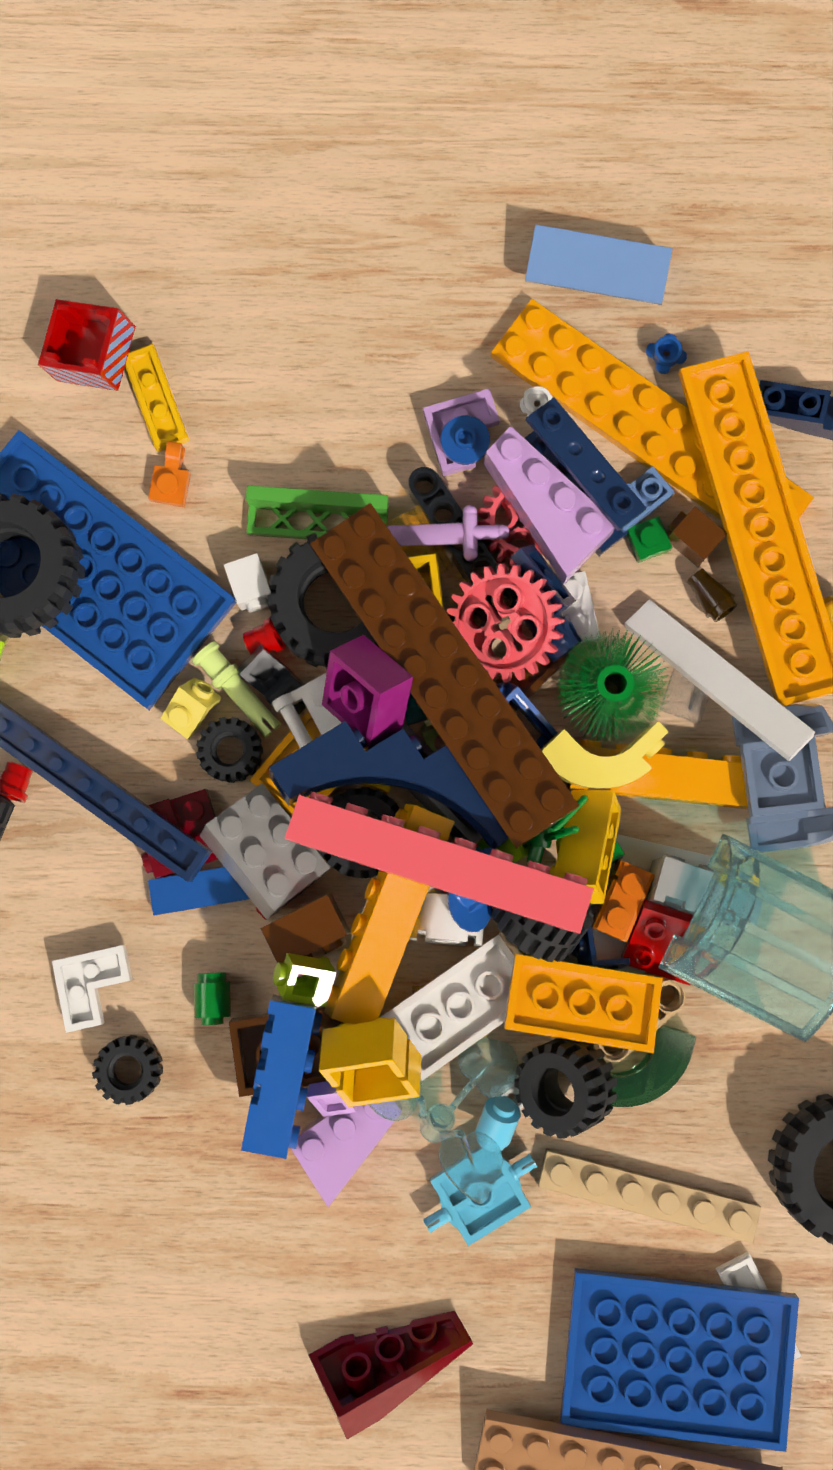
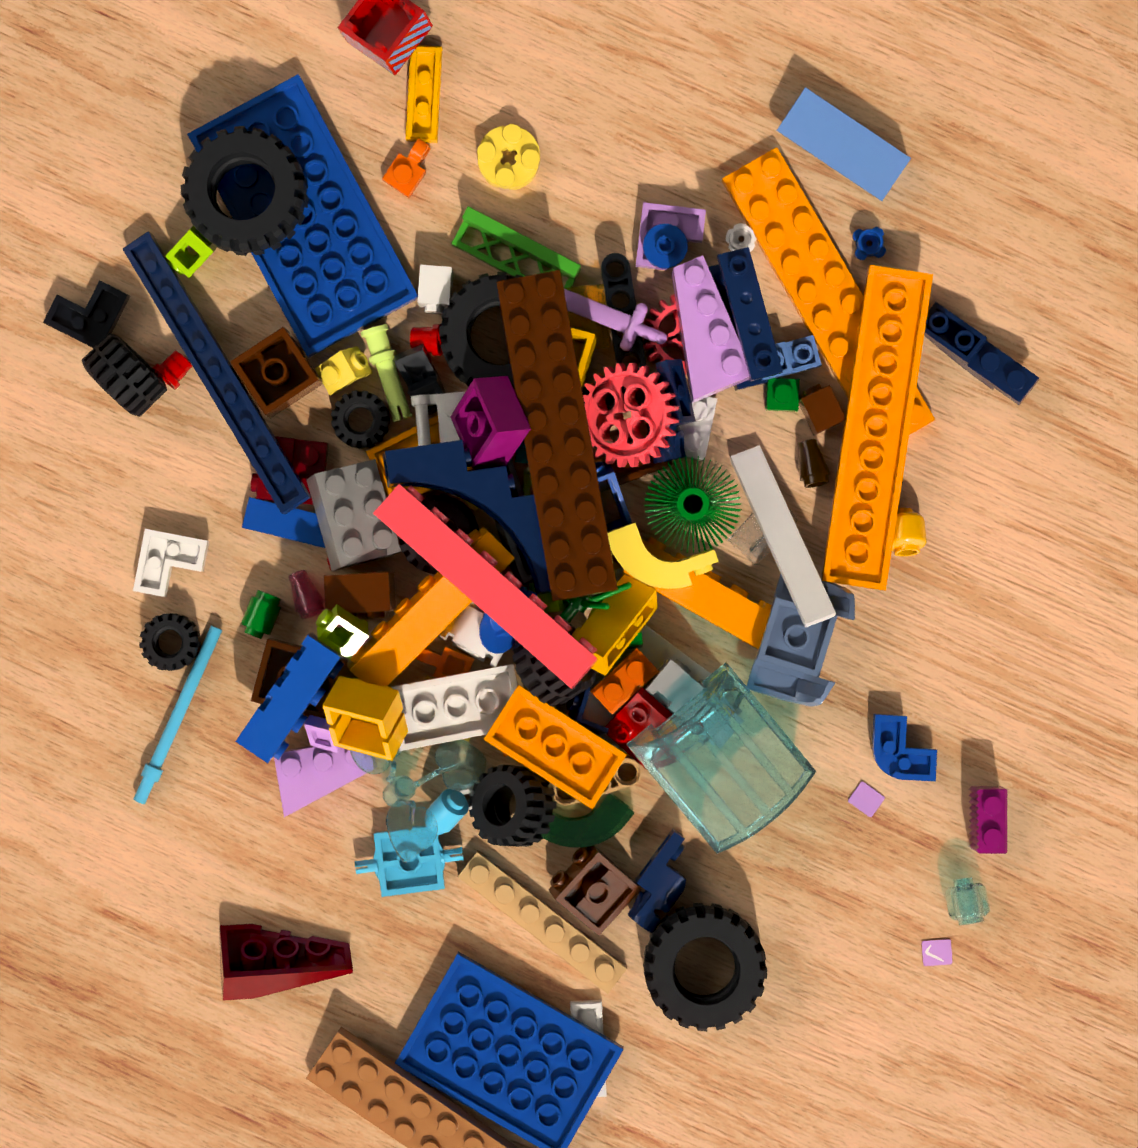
camera: 25 degrees right, 5 degrees up
(121, 739) = (276, 372): none -> reddish brown brick
(168, 1216) = (152, 771): none -> medium azure bar
(251, 958) = (305, 595): none -> clear pink cone
(265, 403) = (506, 175): none -> light yellow plate
(430, 963) = (447, 664): none -> orange plate
(687, 1137) = (593, 888): none -> reddish brown plate
(754, 1097) = (661, 883): none -> dark blue plate

